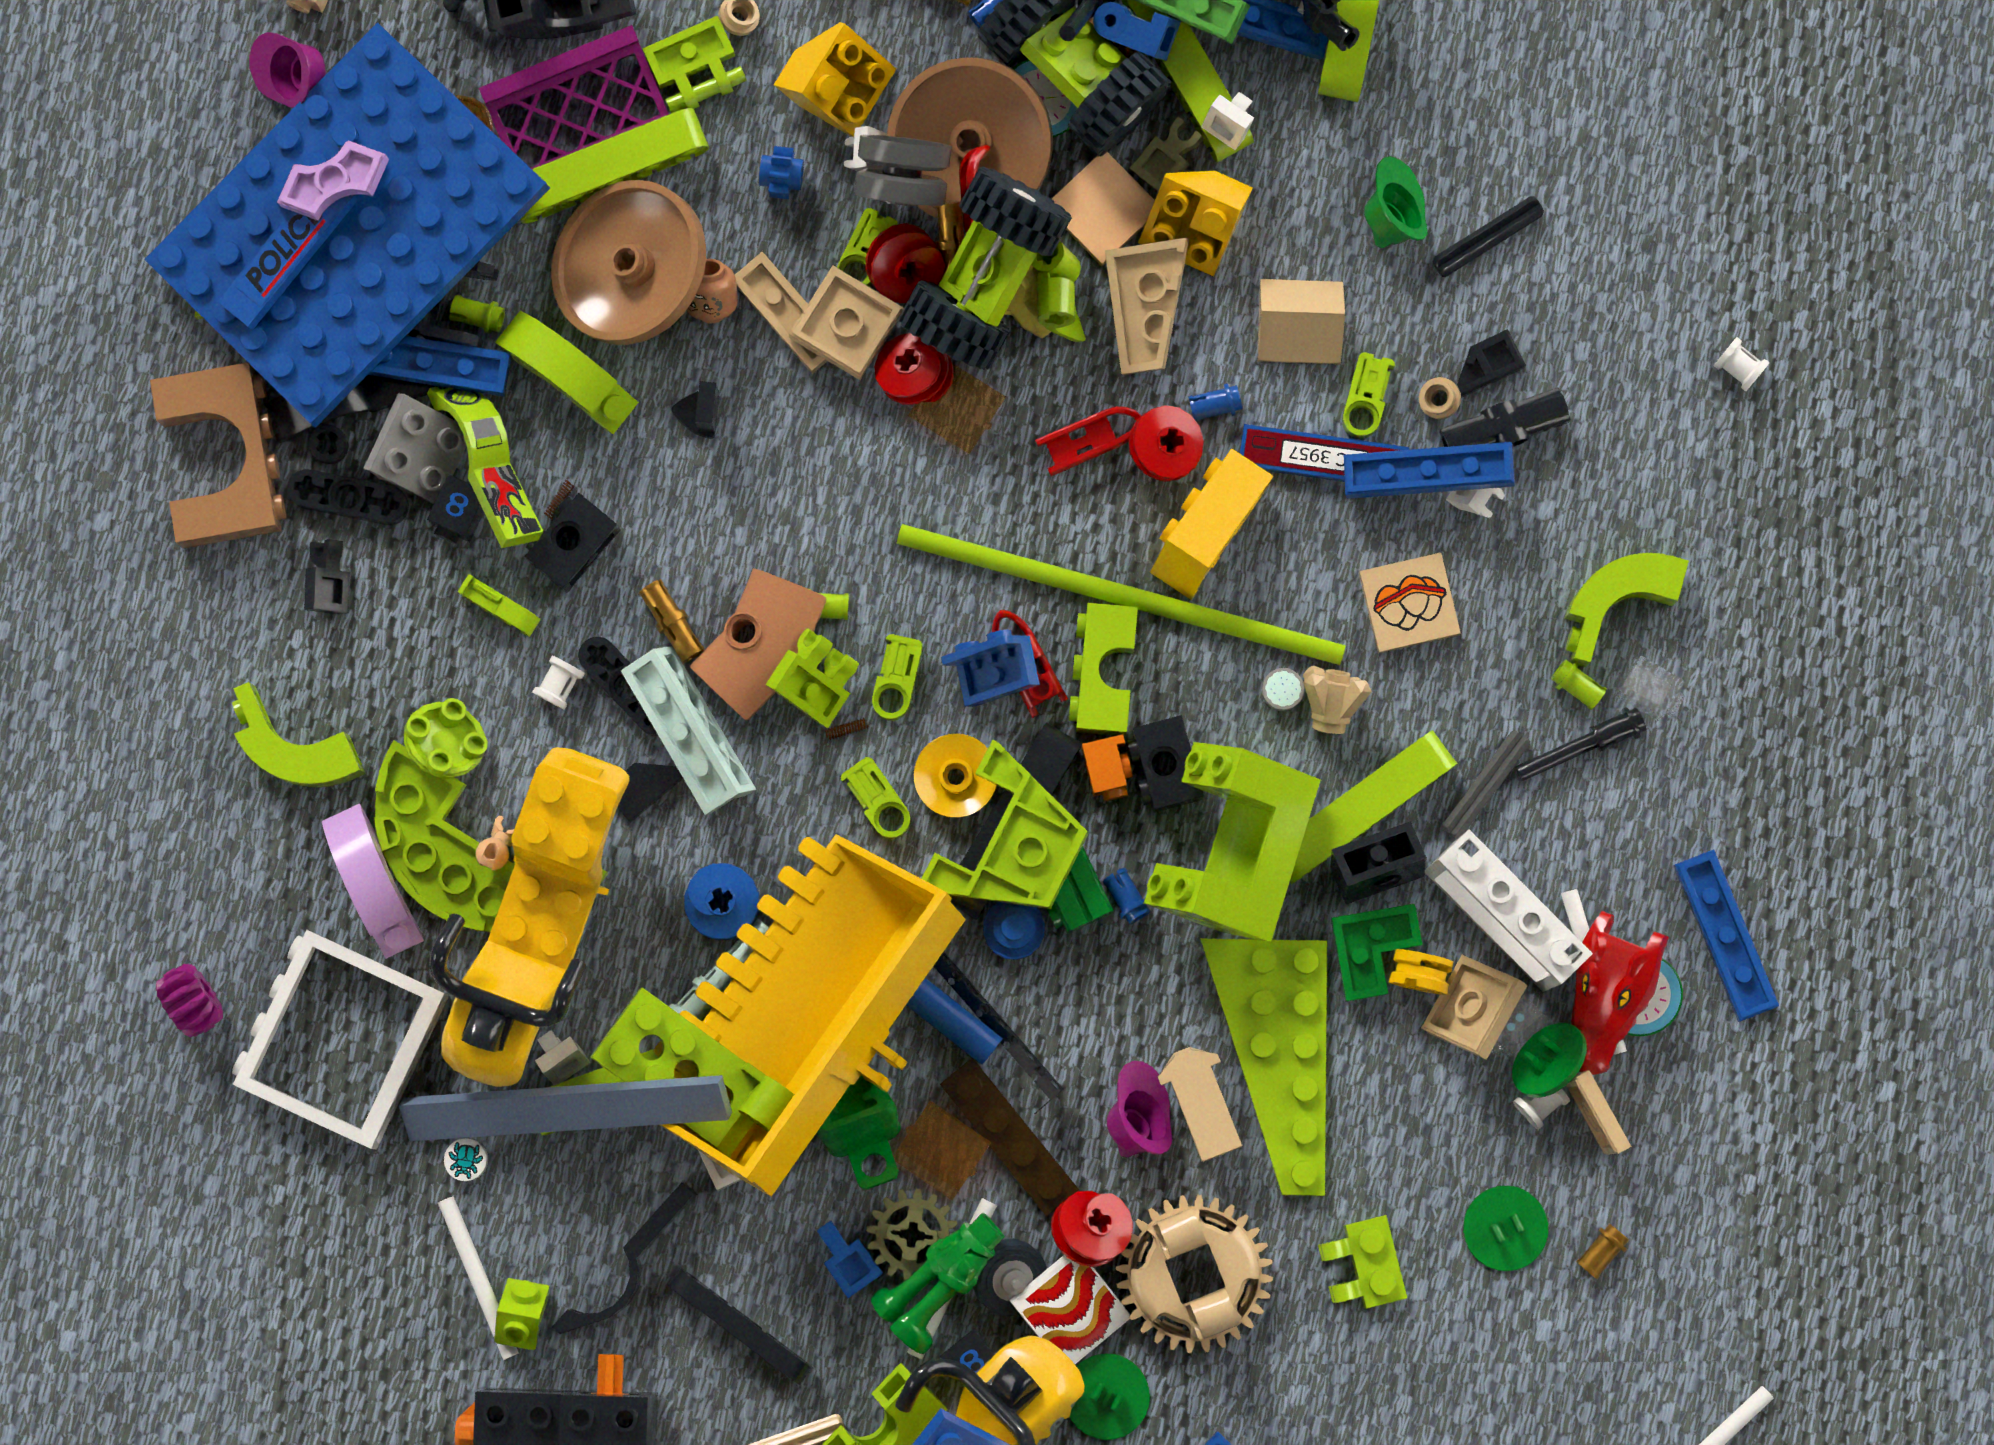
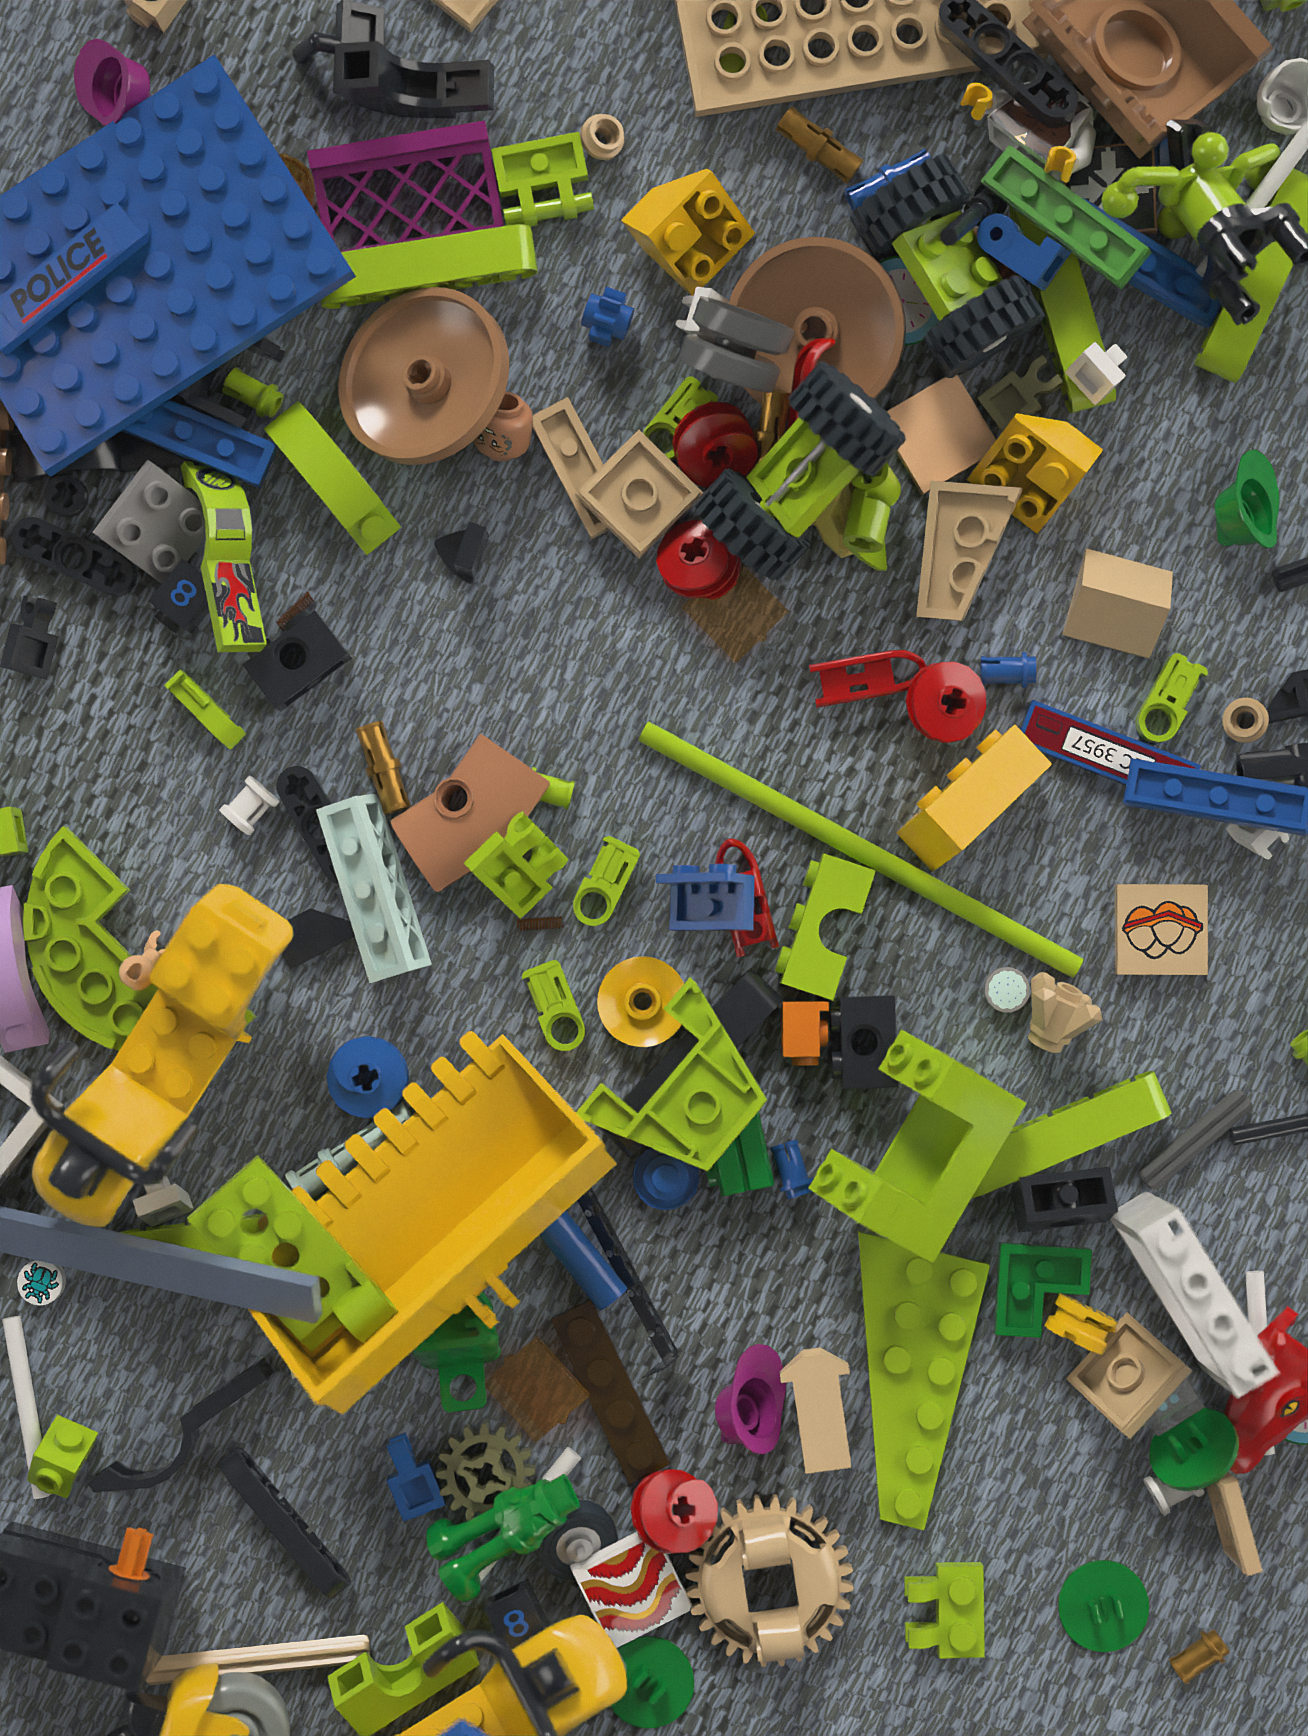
camera: 15 degrees right, 5 degrees up
(316, 187) = (144, 209): lavender tile -> none
(445, 739) = (116, 837): lime dish -> none

